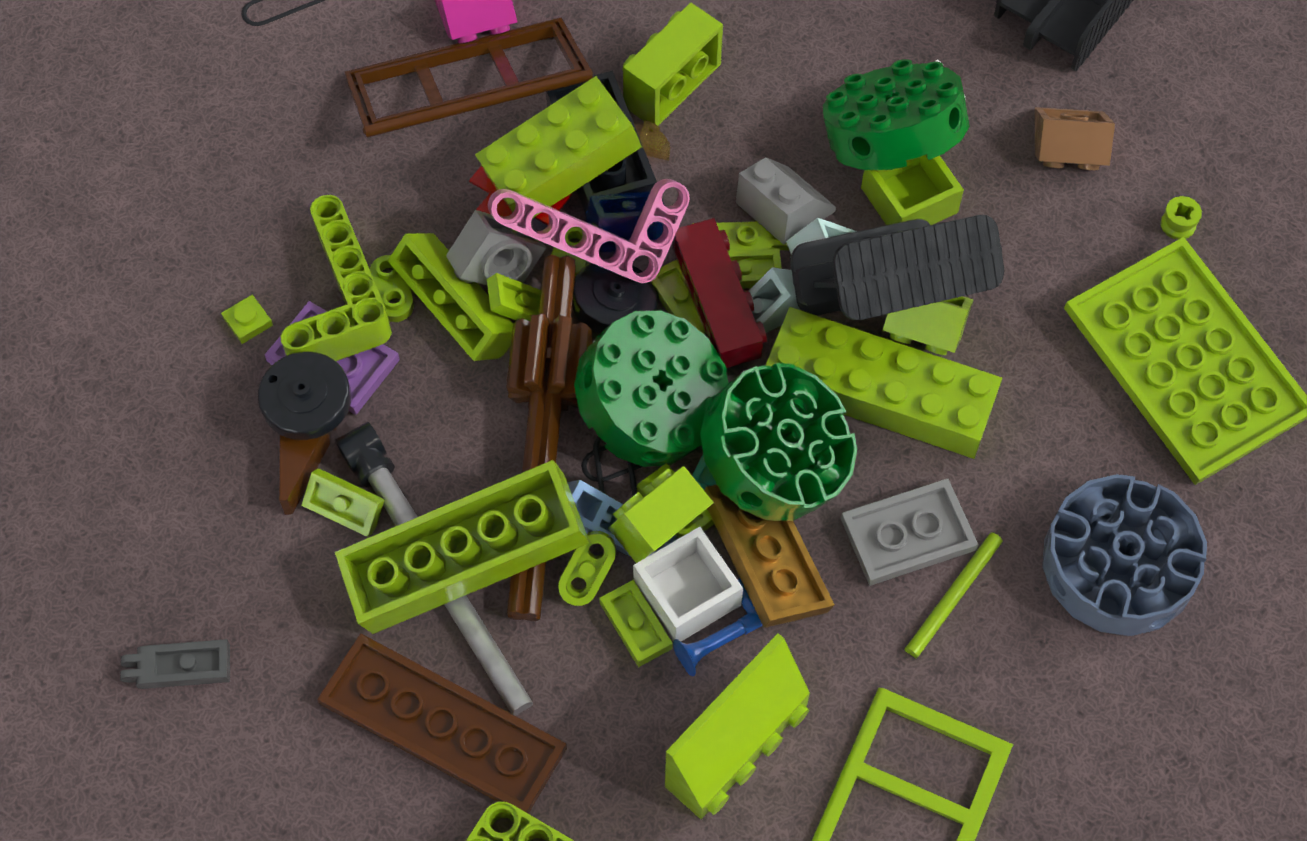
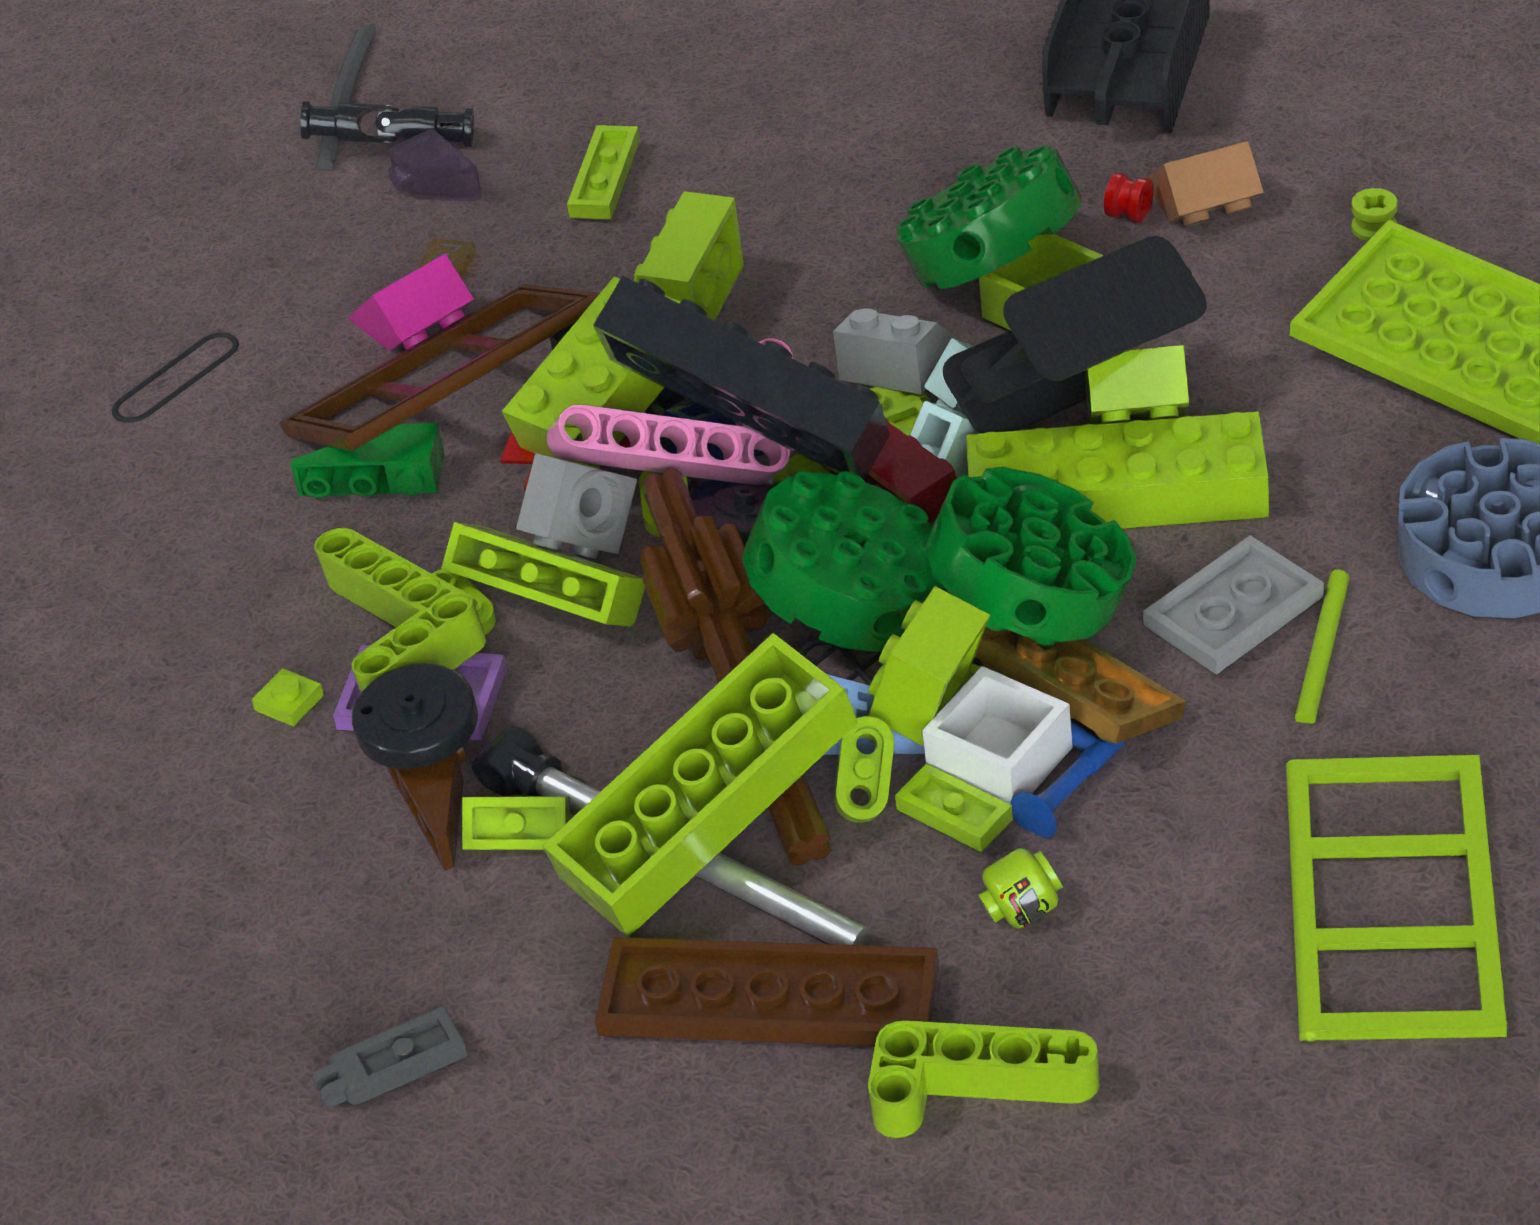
camera: 15 degrees left, 20 degrees down
(407, 149) = (396, 462): none -> green slope
(512, 297) = (617, 544): lime plate -> none
(634, 217) = (742, 378): none -> black brick
(645, 717) = (1020, 888): none -> lime head
(737, 730) = (1141, 842): lime slope -> none
(1013, 124) = (1128, 197): none -> red wheel

